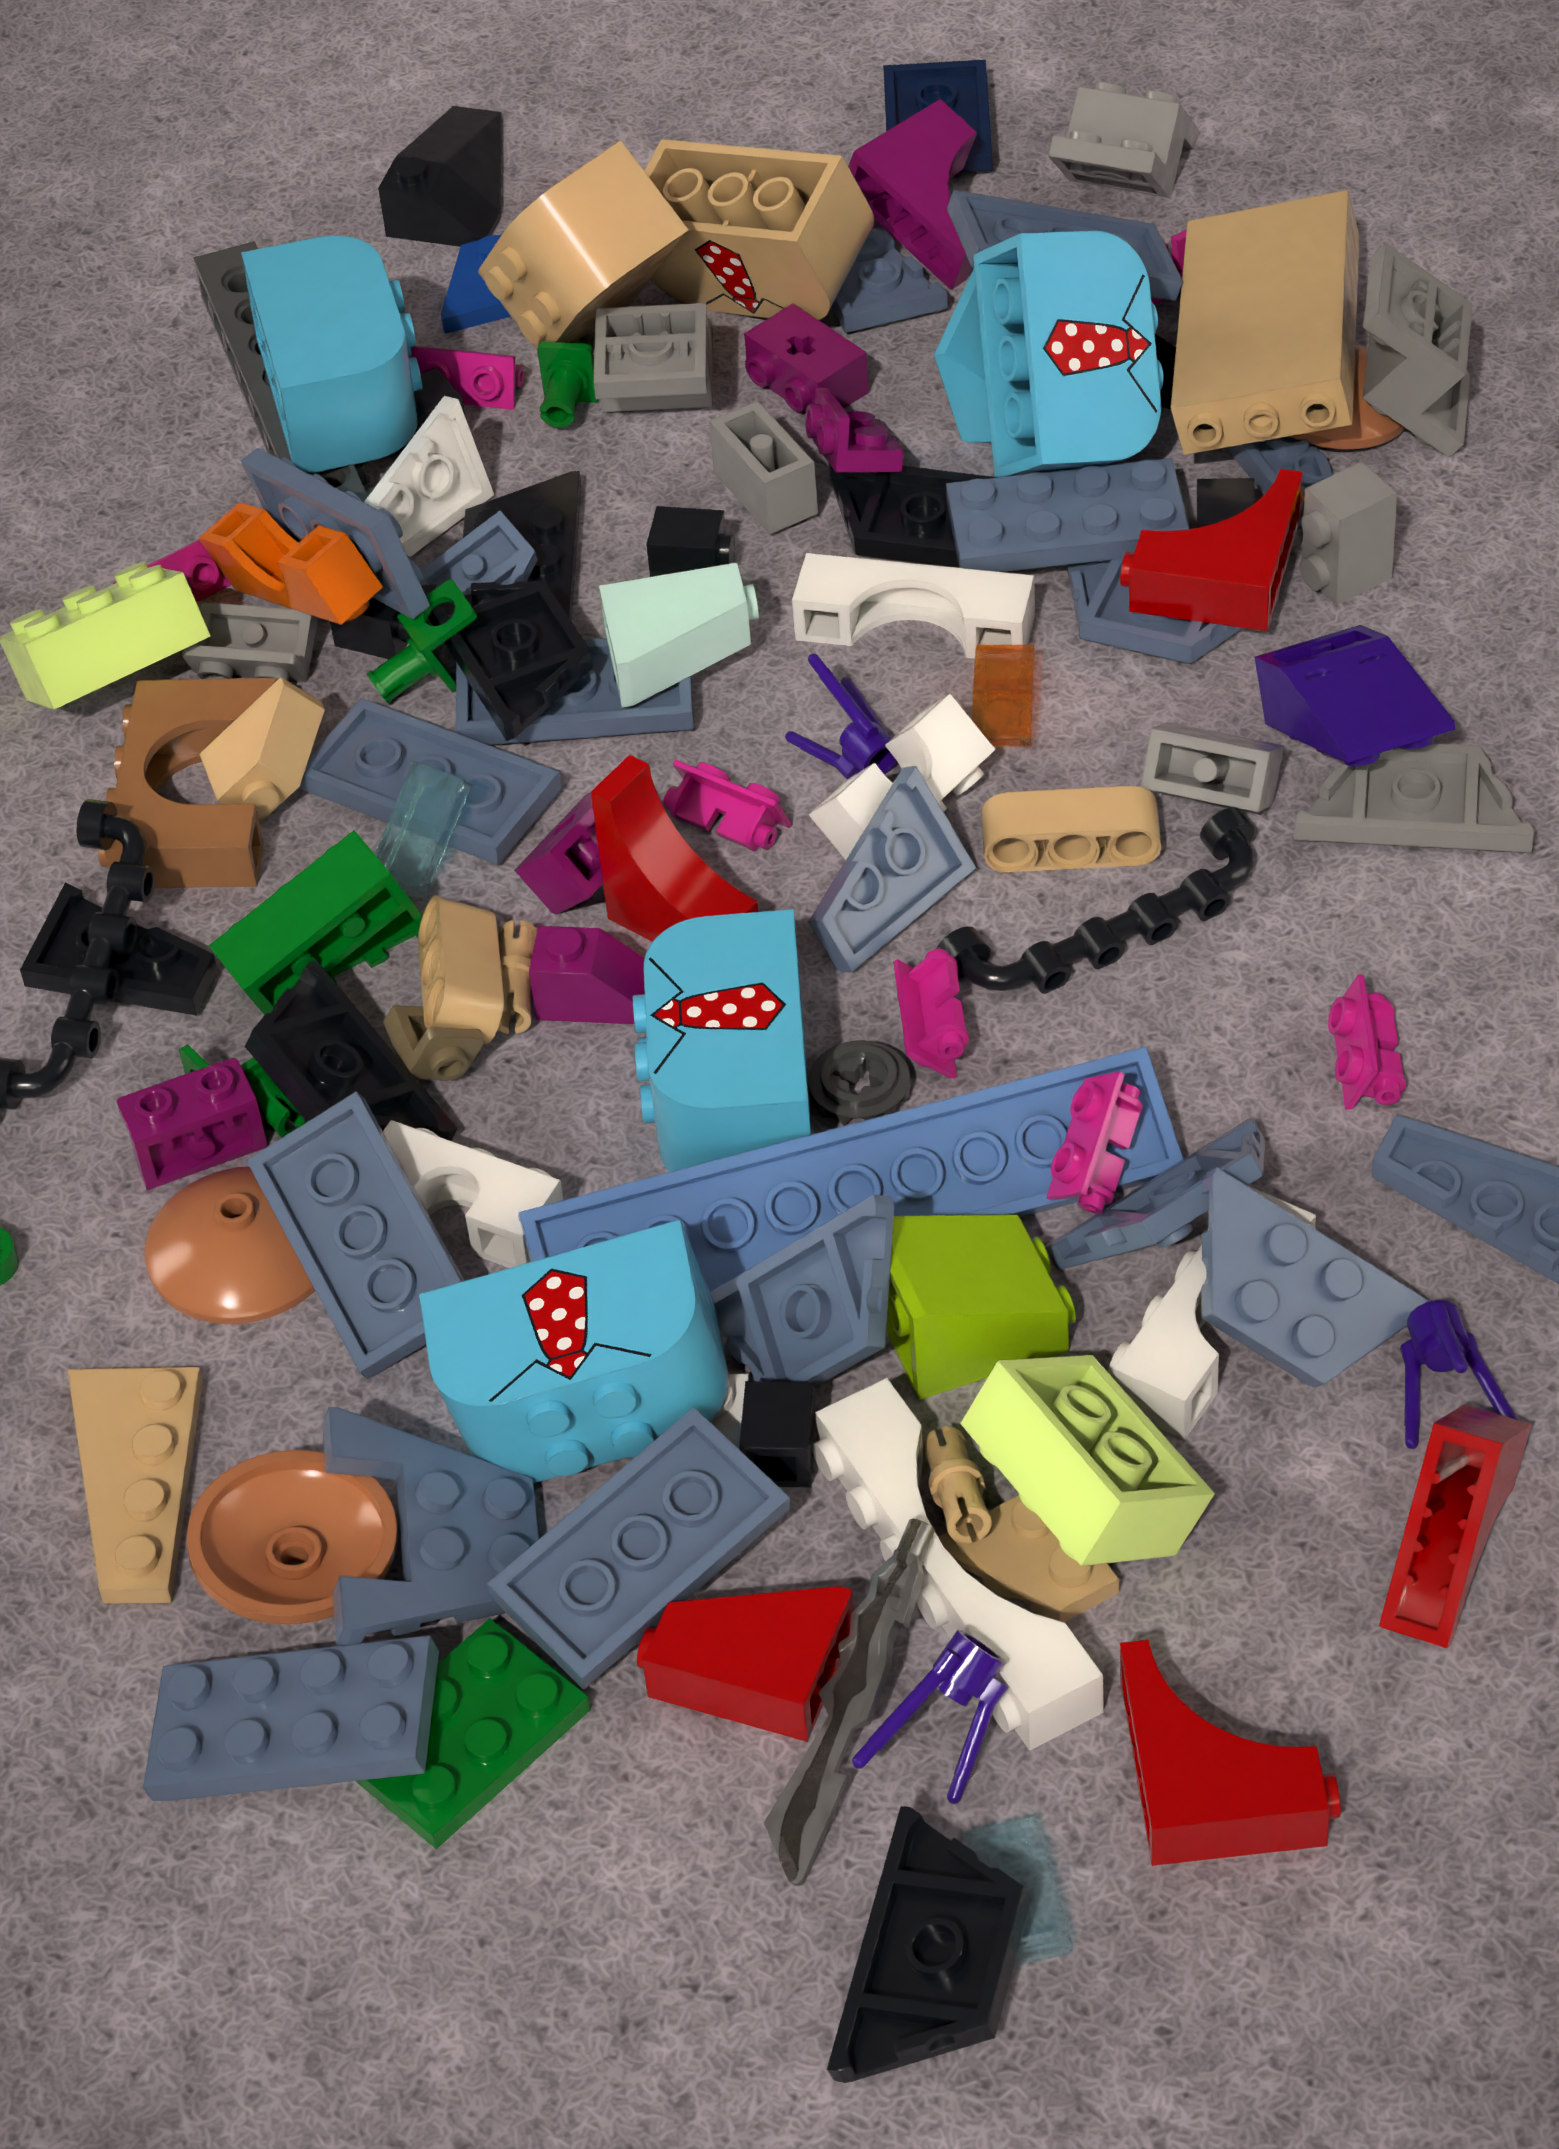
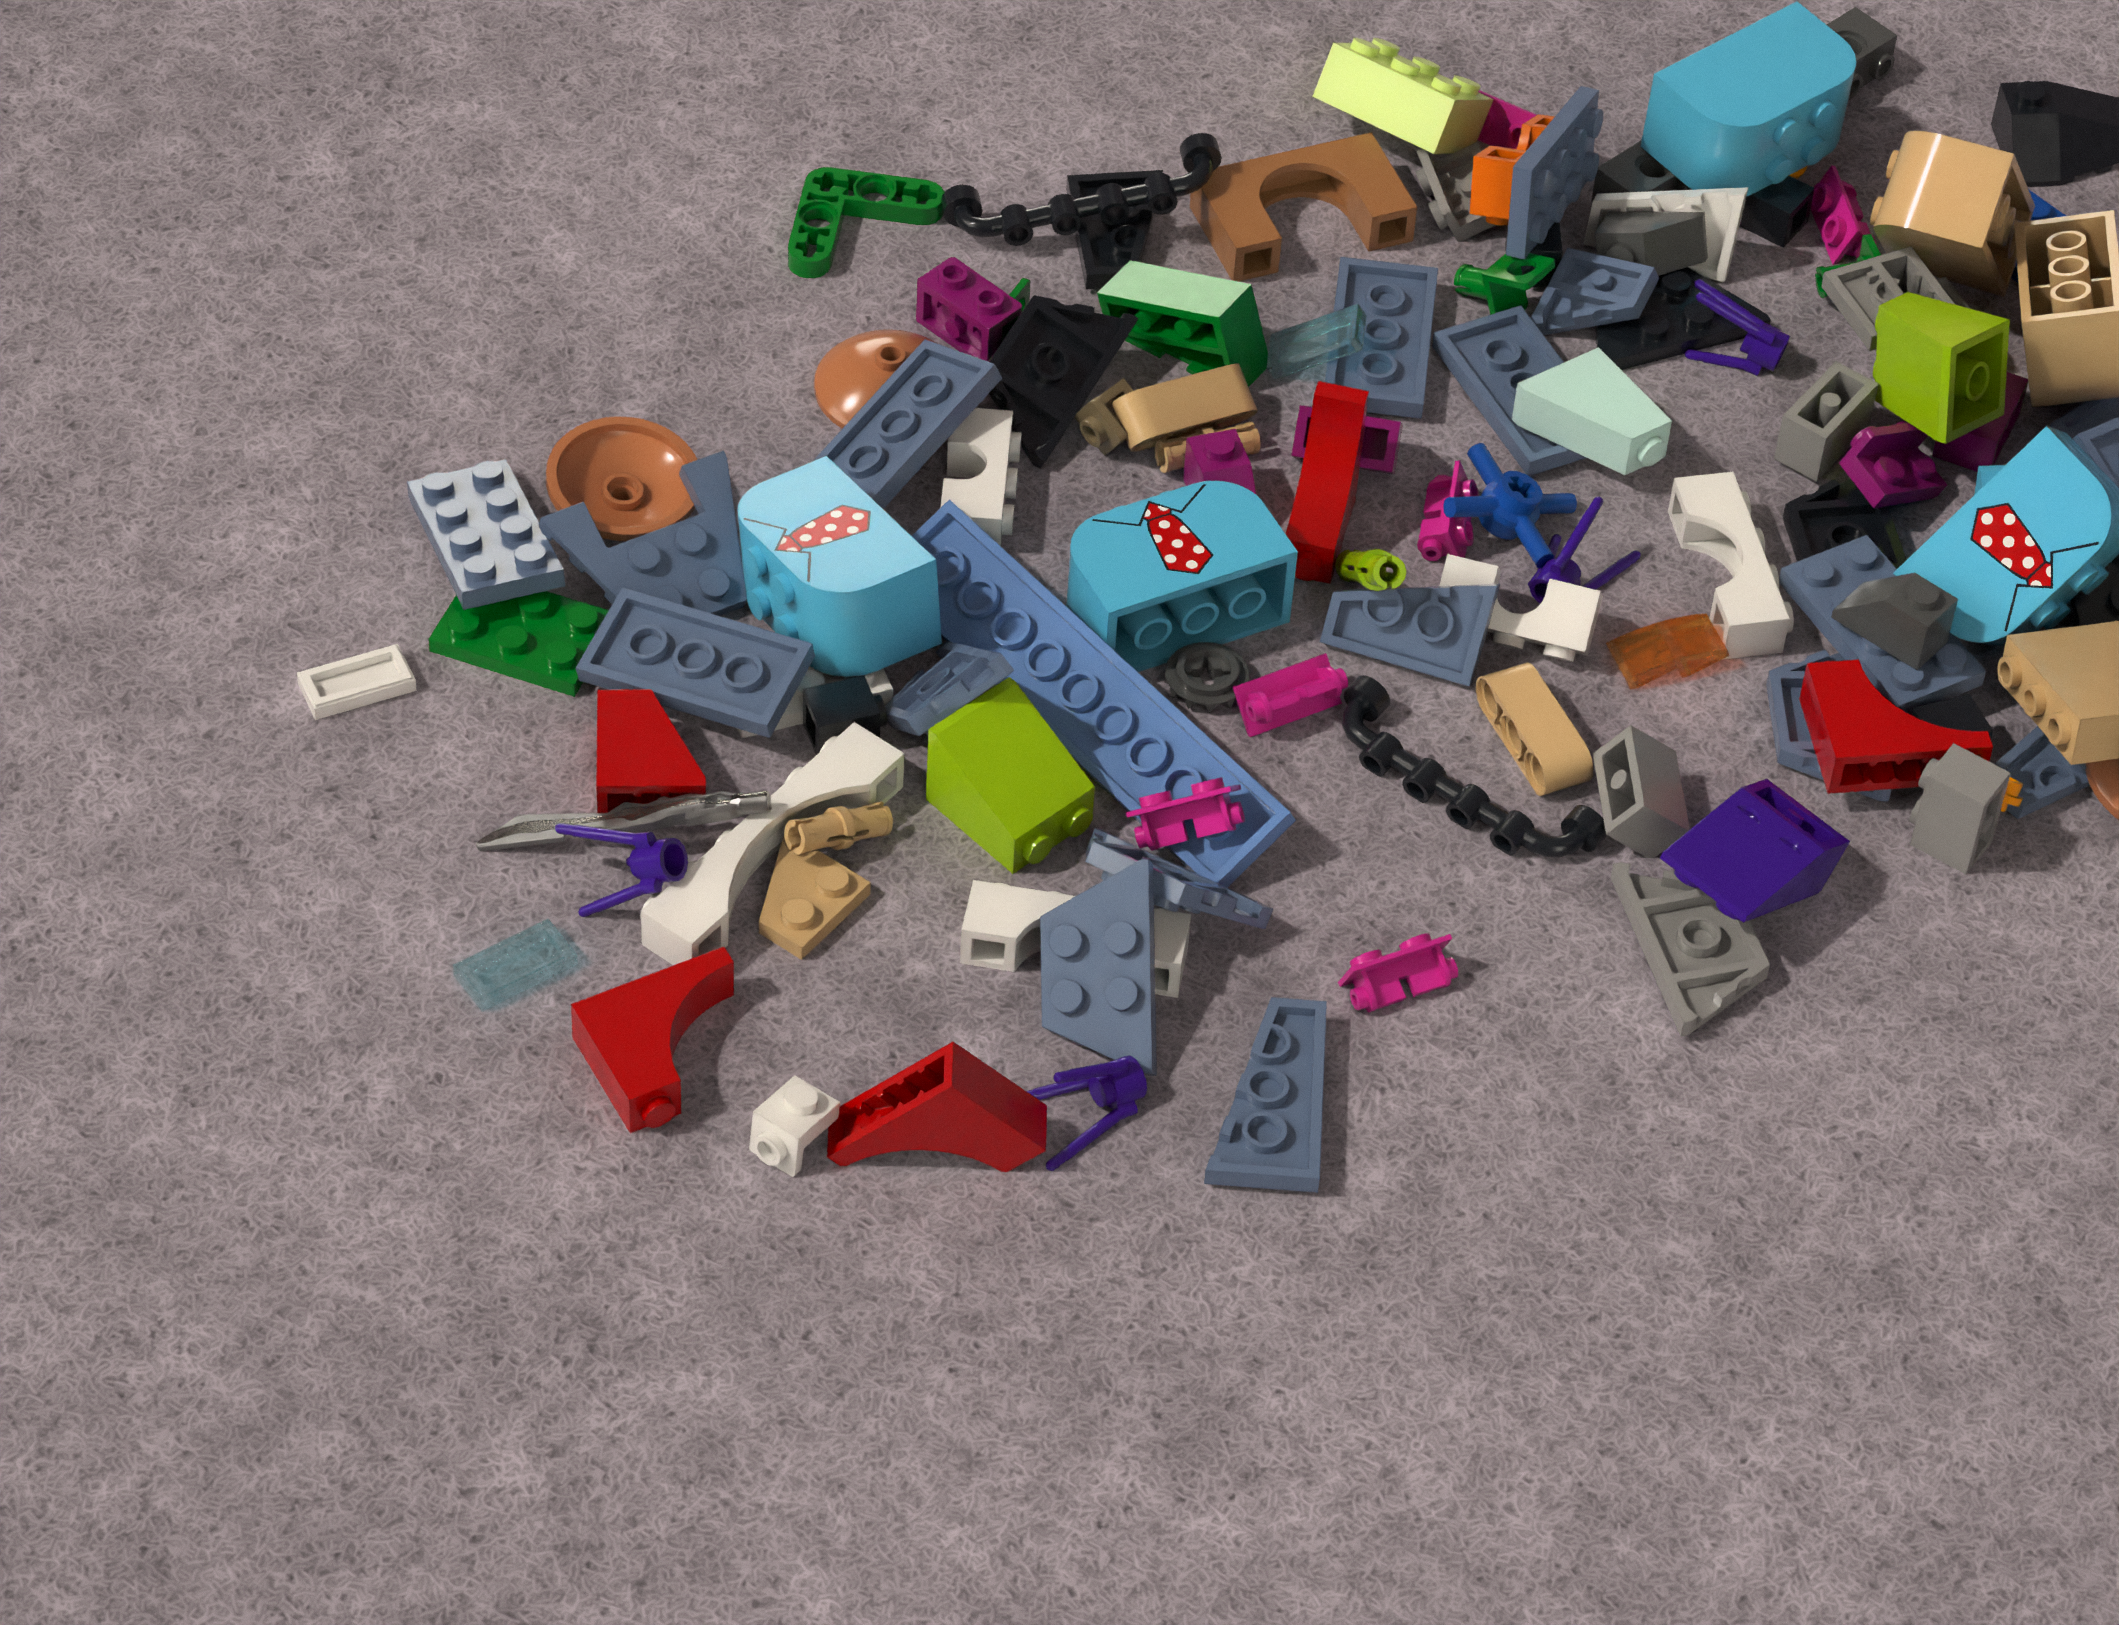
camera: 60 degrees right, 0 degrees up
(136, 1471) = (674, 391): tan wing -> none
(265, 749) = (1338, 227): tan slope -> none
(436, 509) = (1654, 239): none -> dark grey slope
(457, 1944) = (356, 681): none -> white tile
(516, 651) = (1522, 330): black wing -> none
(613, 487) = (1762, 342): none -> dark purple plant
(688, 540) = (1716, 407): black brick -> none
(751, 745) = (1510, 505): none -> blue bar
(785, 335) = (1940, 365): none -> lime slope
(830, 863) = (1371, 568): none -> lime pin
(930, 1955) = (437, 920): black wing -> none
(1086, 1459) = (877, 883): yellowish green brick -> none
(1099, 479) = (1900, 616): none -> dark grey slope
(1402, 1661) = (790, 1123): none -> white bracket

